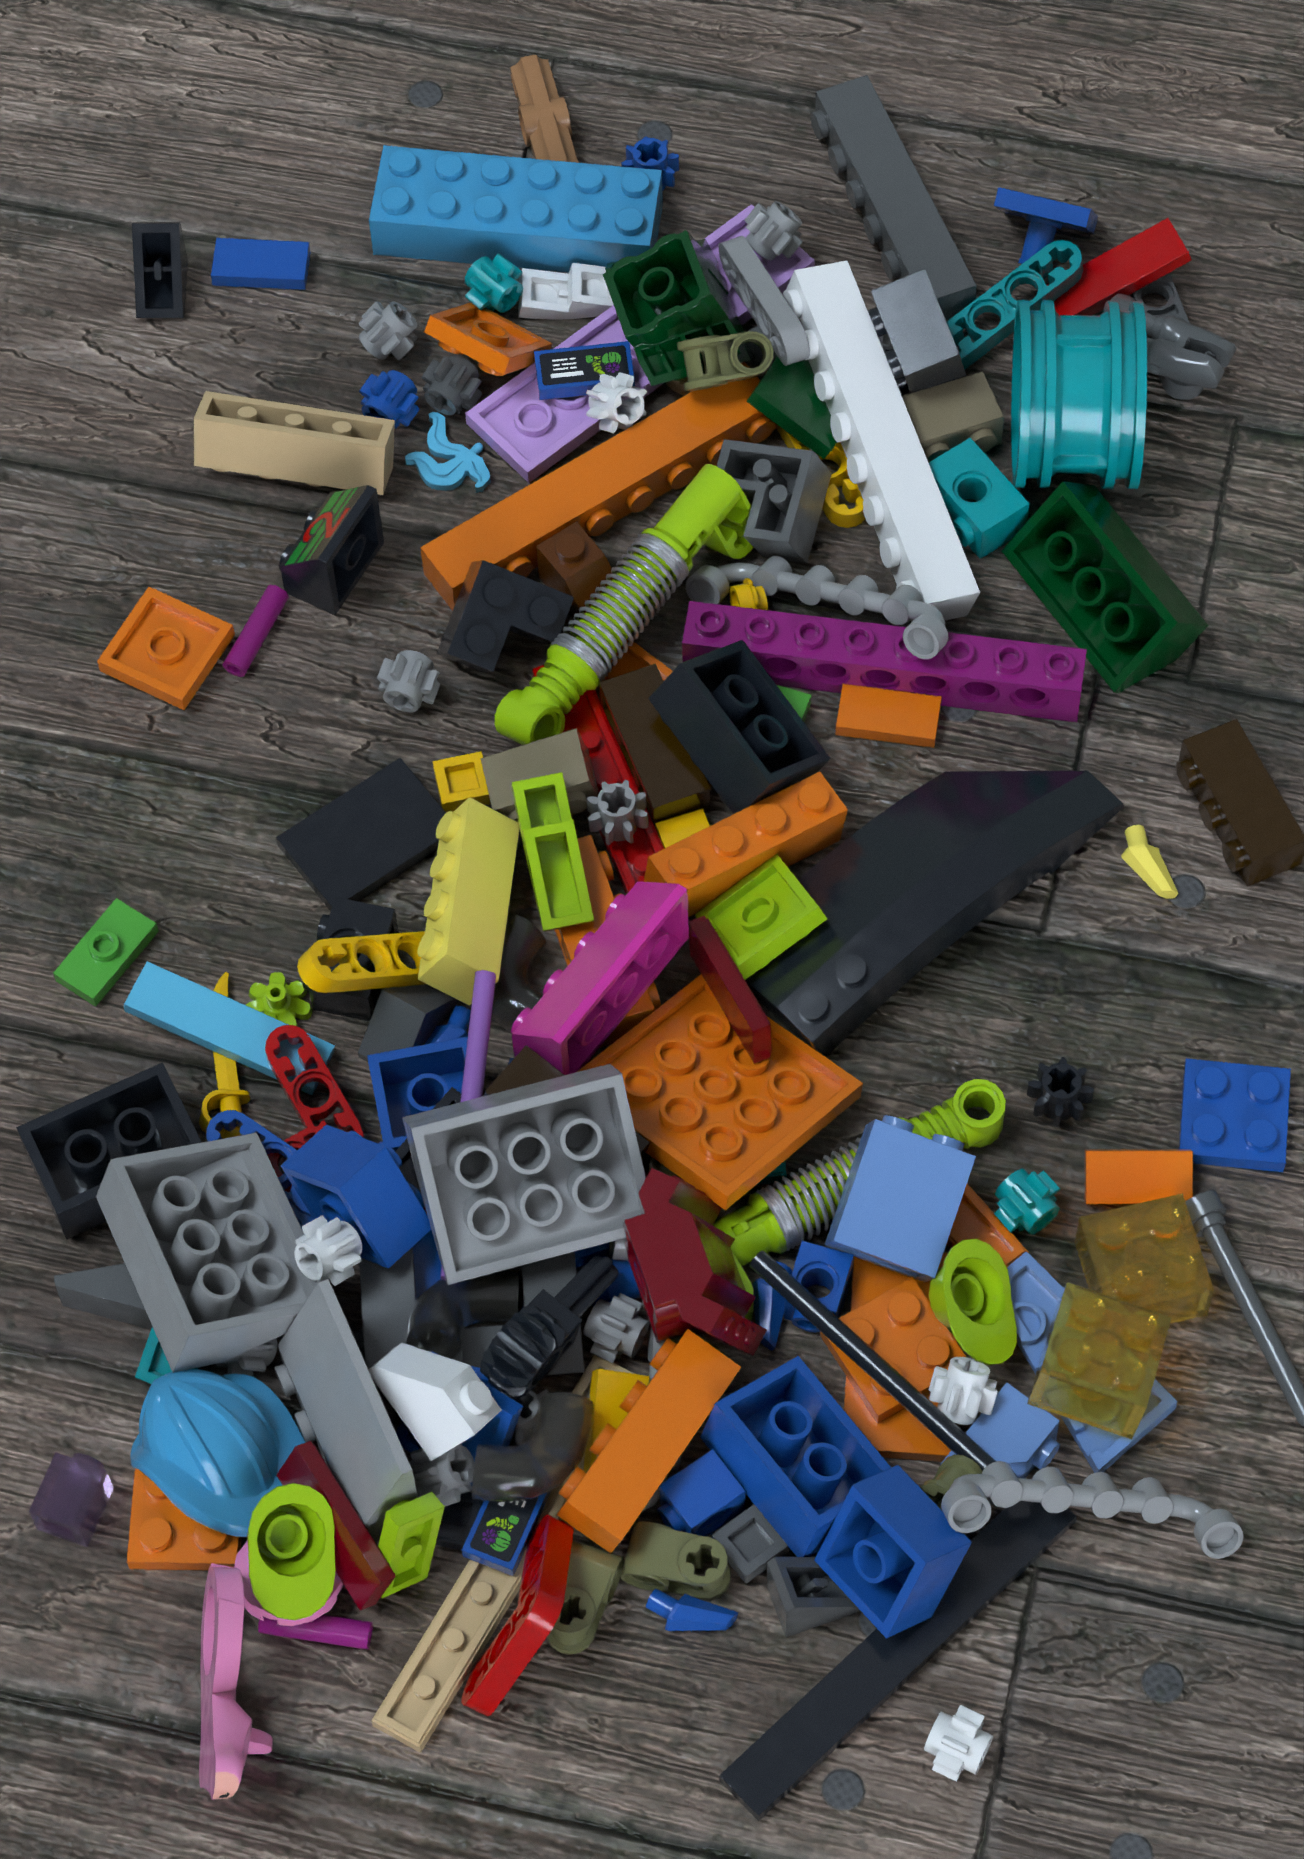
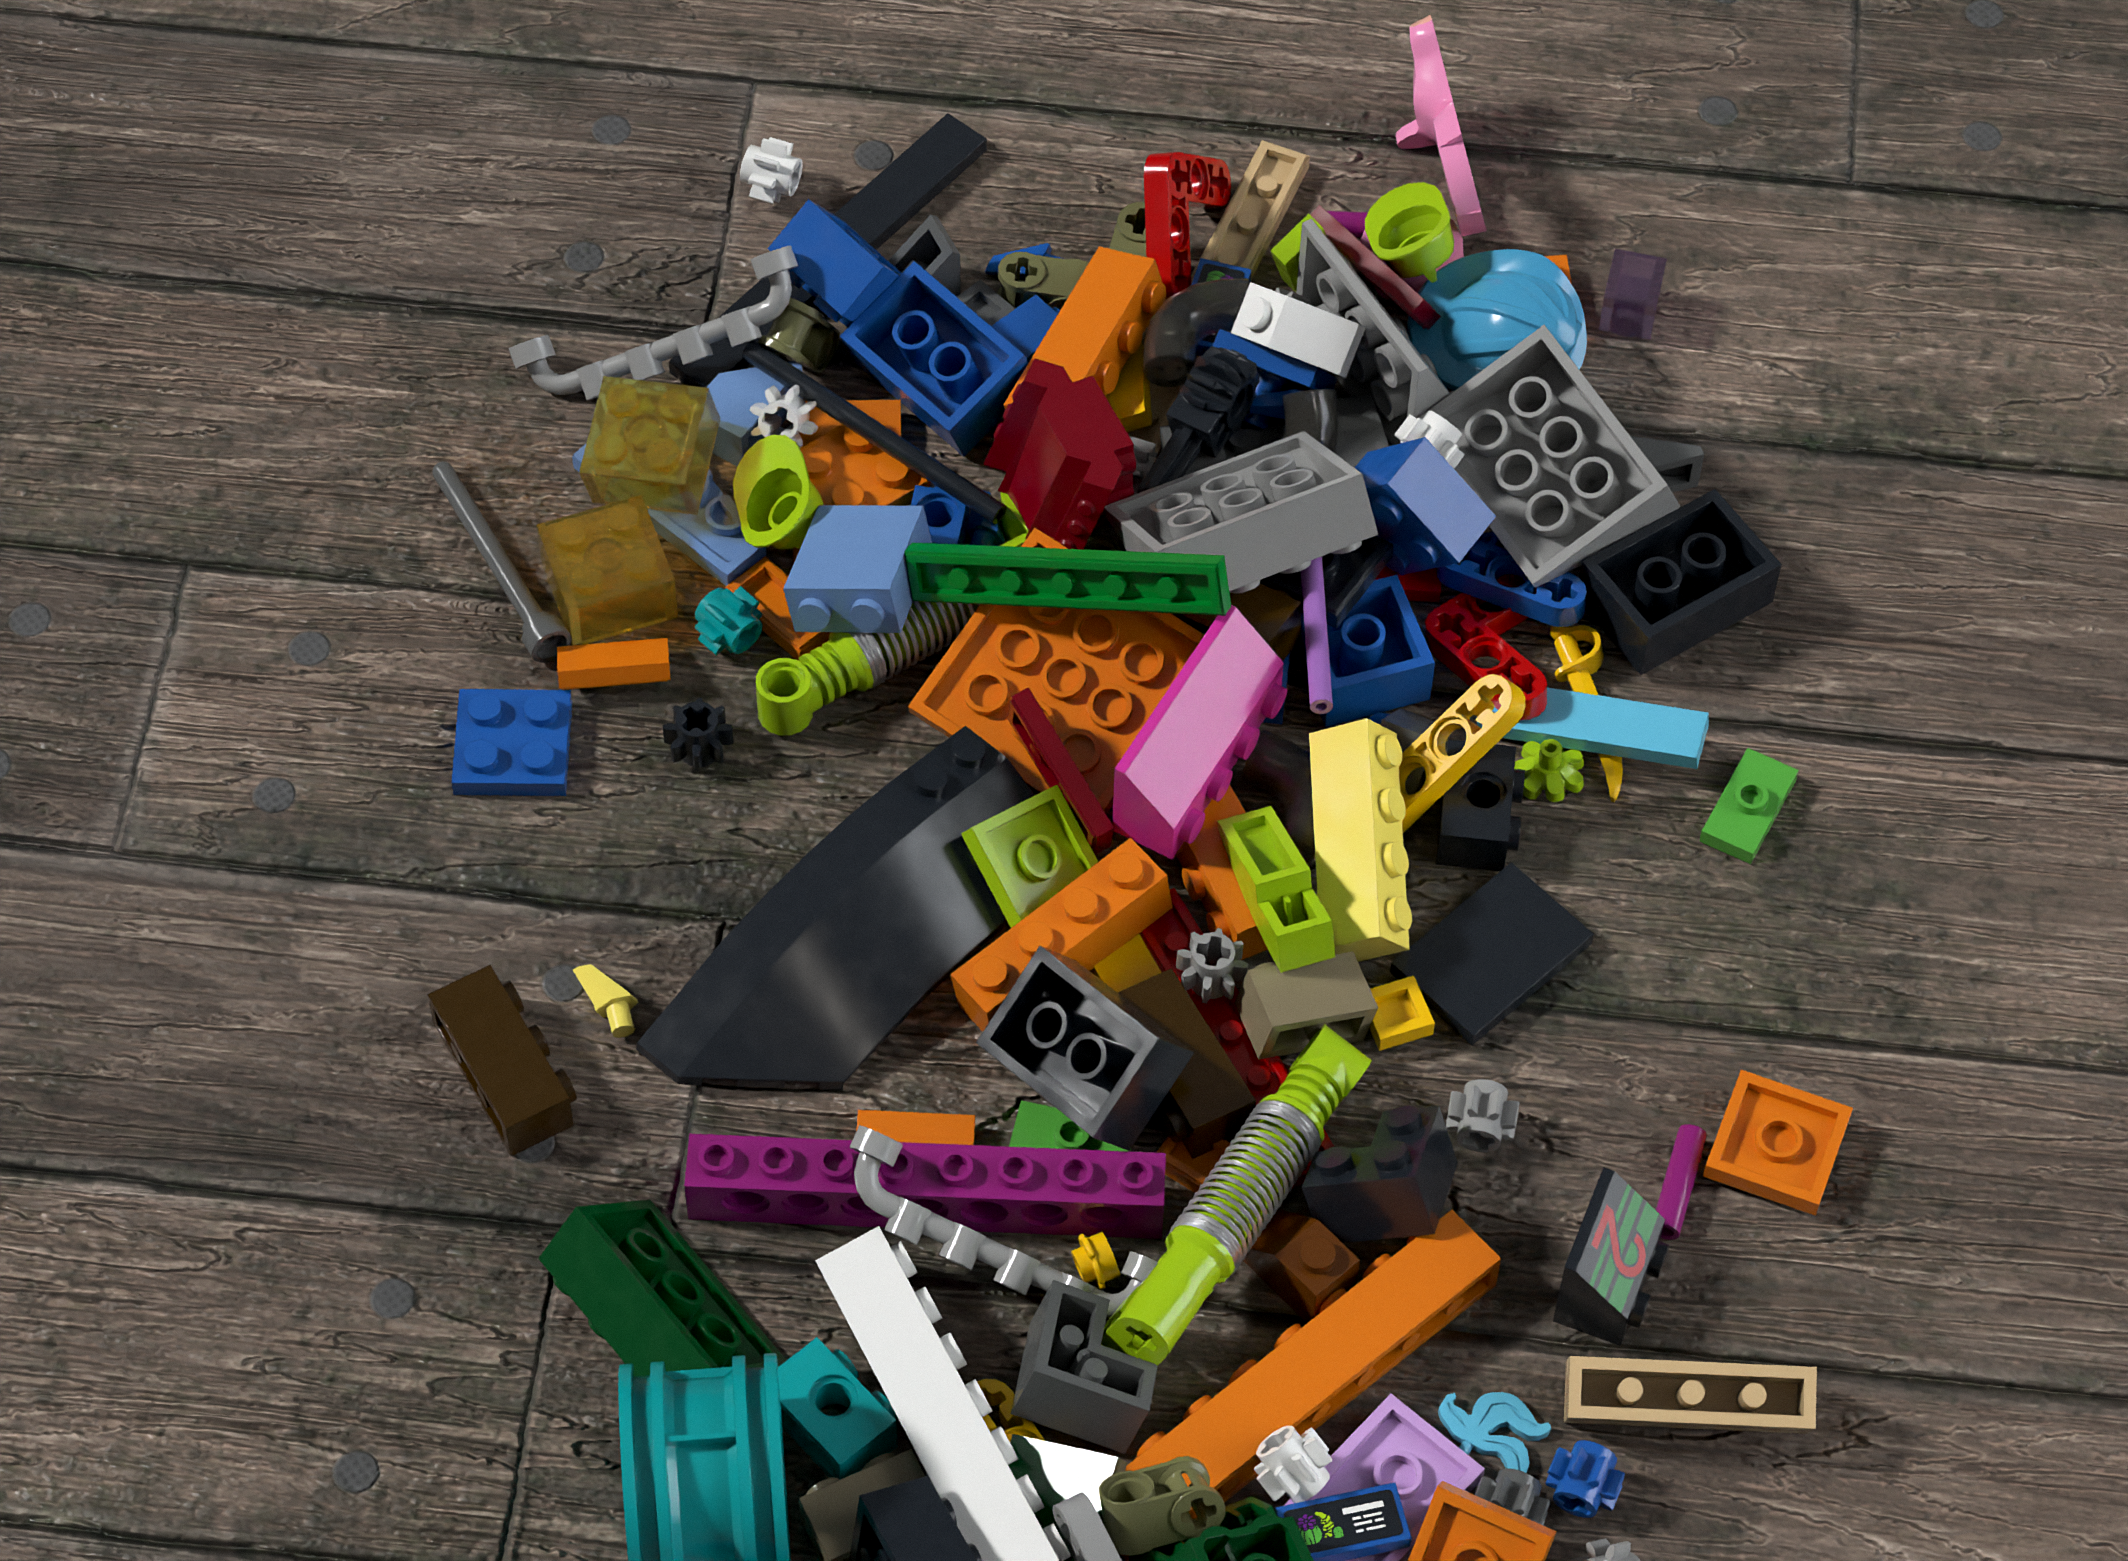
camera: 170 degrees right, 5 degrees down
(707, 1102) = (1068, 578): none -> green tile

